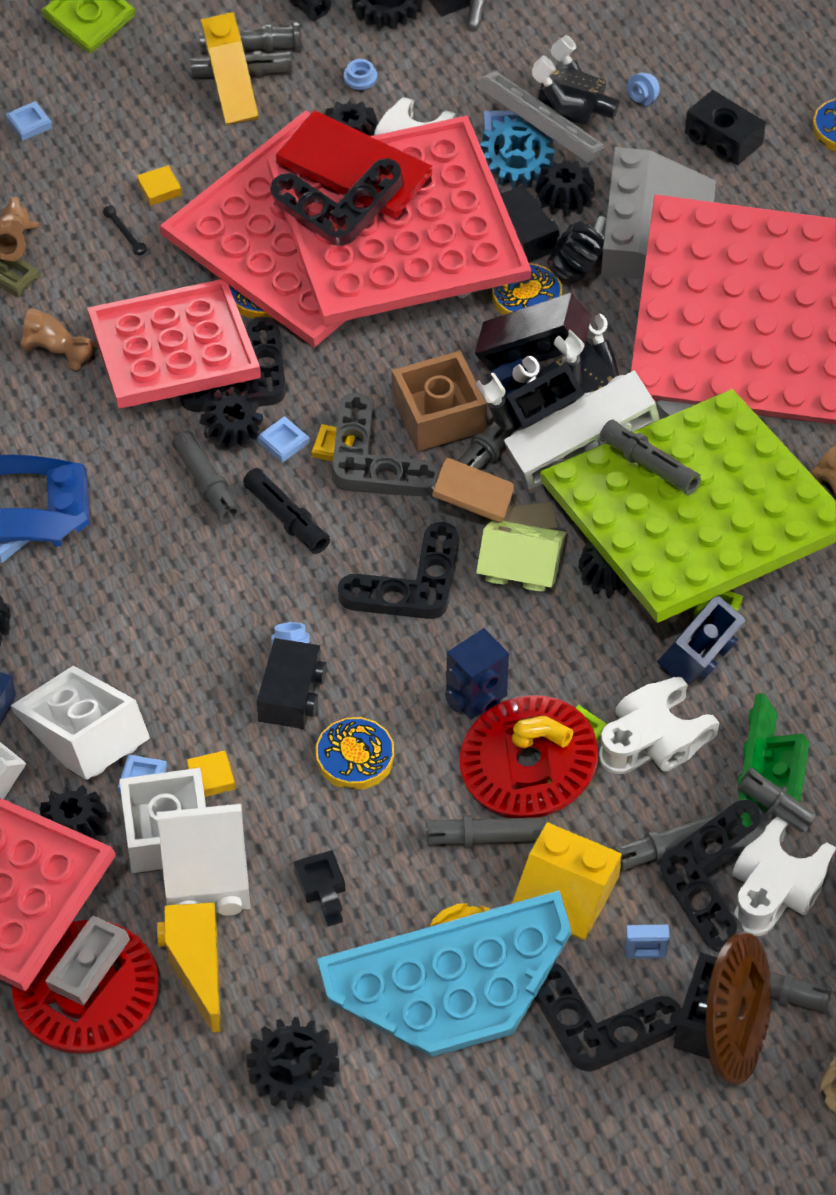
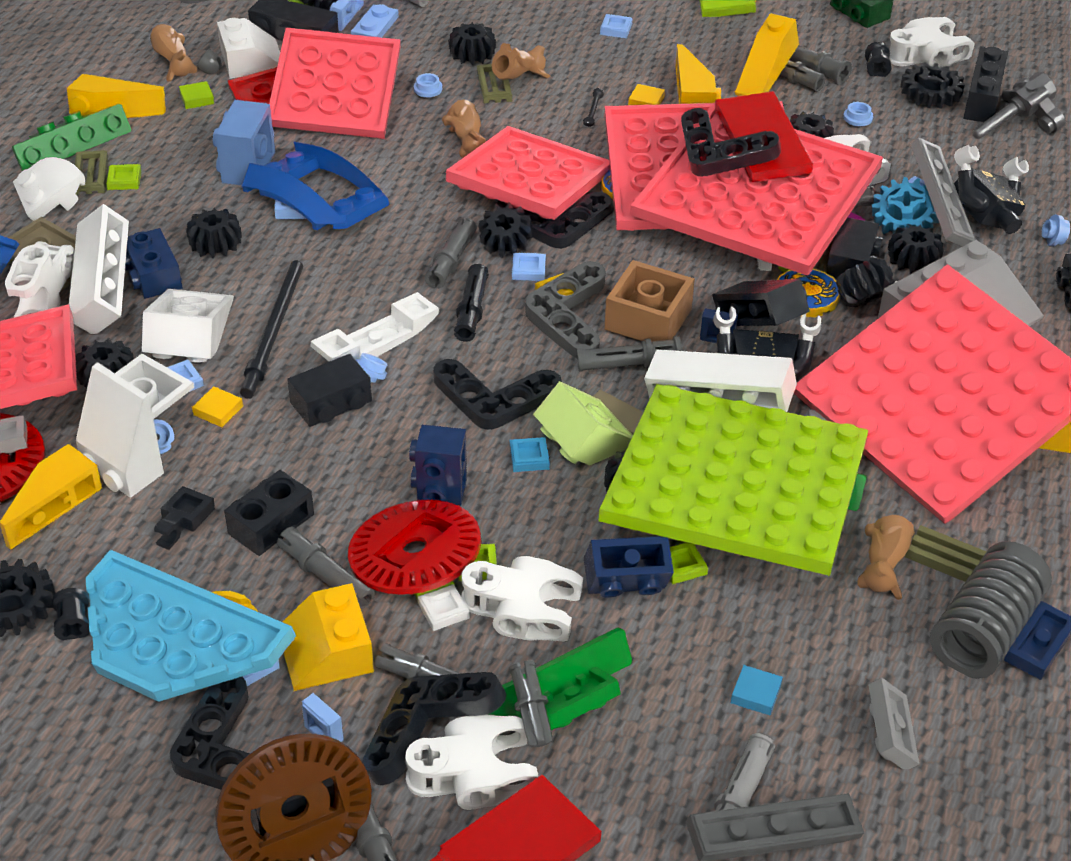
camera: 45 degrees right, 10 degrees down
(189, 140) = (693, 79): none -> yellow slope
(193, 714) = (257, 367): none -> black bar
(252, 598) = (406, 320): none -> white slope
(355, 753) = (317, 460): tile -> none
(356, 1033) = (71, 614): none -> black bush
(389, 824) = (267, 511): none -> black brick
(473, 490) = (596, 365): medium nougat slope -> none
(504, 610) = (529, 454): none -> dark azure tile
(540, 726) = (438, 528): yellow arm -> none
(541, 395) = (702, 328): black torso -> none
(606, 787) = (443, 607): none -> white tile
(638, 449) = (734, 431): dark grey pin -> none

